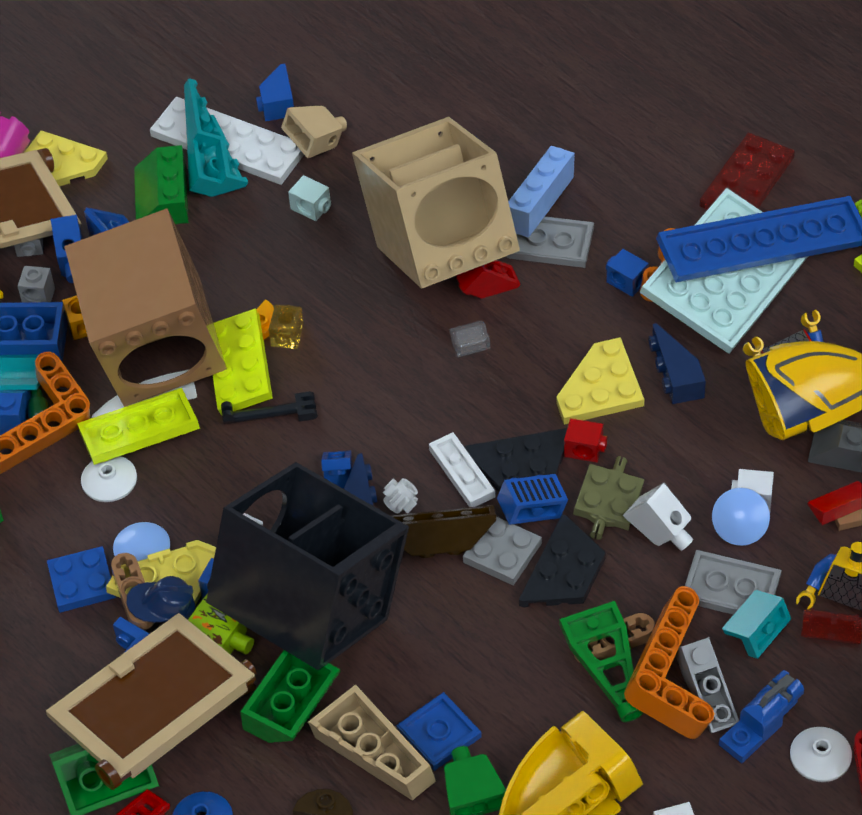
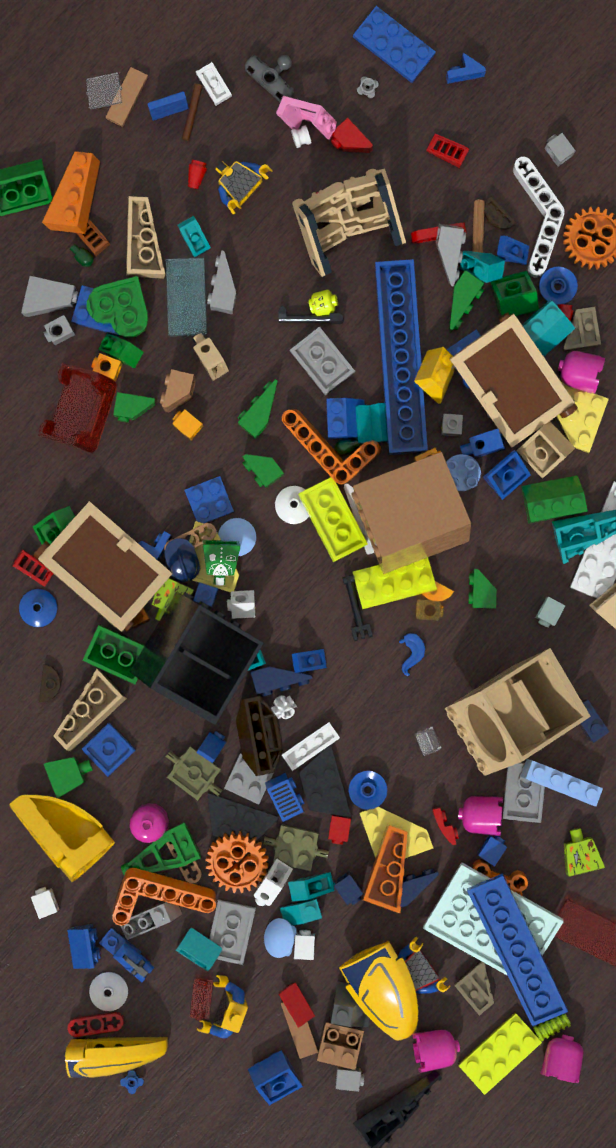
camera: 85 degrees right, 35 degrees up
(47, 505) = (264, 468): none -> green slope
(95, 189) = (545, 449): none -> tan slope
(168, 547) = (220, 558): none -> green torso
(269, 266) = (483, 592): none -> green slope
(339, 345) = (417, 648): none -> blue piece
(450, 586) = (212, 746): none -> blue slope
(487, 616) = (194, 773): none -> olive plate
(531, 396) = (367, 800): none -> blue dish
(557, 672) = (149, 823): none -> dark pink cylinder
(577, 271) = (482, 815): none -> dark pink cylinder
(599, 319) = (448, 831): none -> red slope
(624, 563) = (248, 874): none -> orange gear
(639, 181) = (581, 854): none -> lime torso
(646, 369) = (387, 873): none -> orange wedge
(670, 425) = (348, 888): none -> dark blue brick
(671, 473) = (311, 886): none -> teal slope
(702, 487) = (301, 911): none -> teal slope
(746, 769) = (83, 946): none -> blue slope
(824, 297) = (476, 988): none -> dark tan wing

